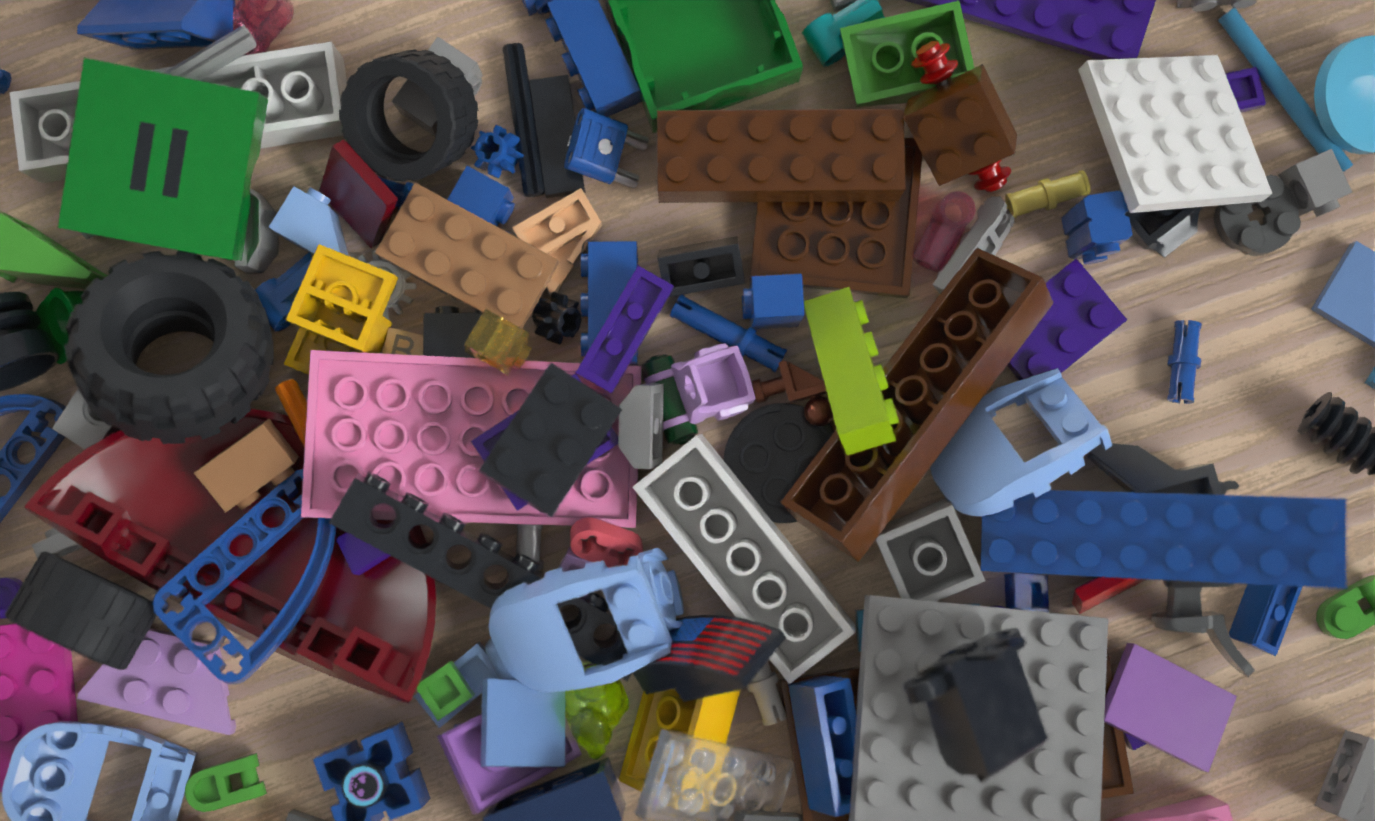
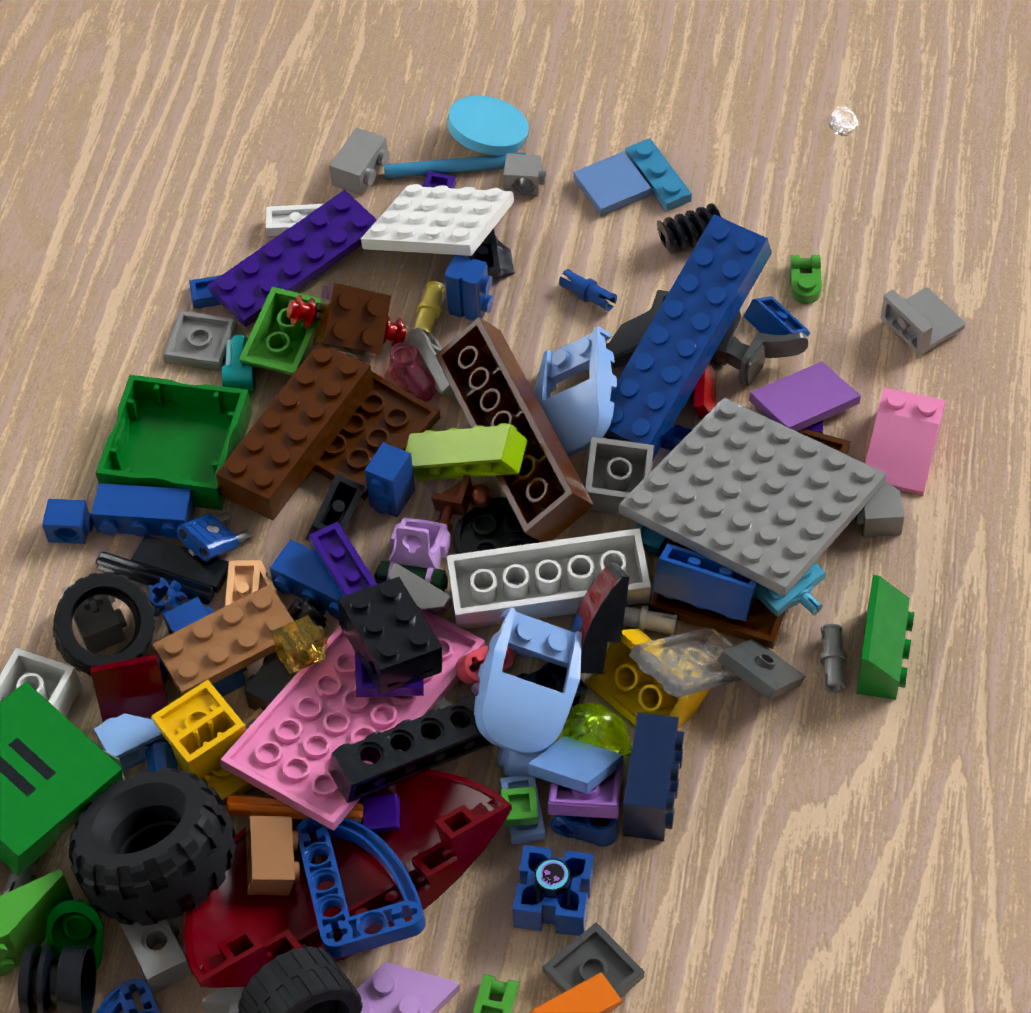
camera: 55 degrees left, 30 degrees down
(728, 332) = (384, 528): blue pin -> none
(980, 705) = (723, 460): black piece -> none
(1071, 327) = (524, 335): dark purple plate -> none
(1249, 236) = (536, 217): dark grey plate -> none

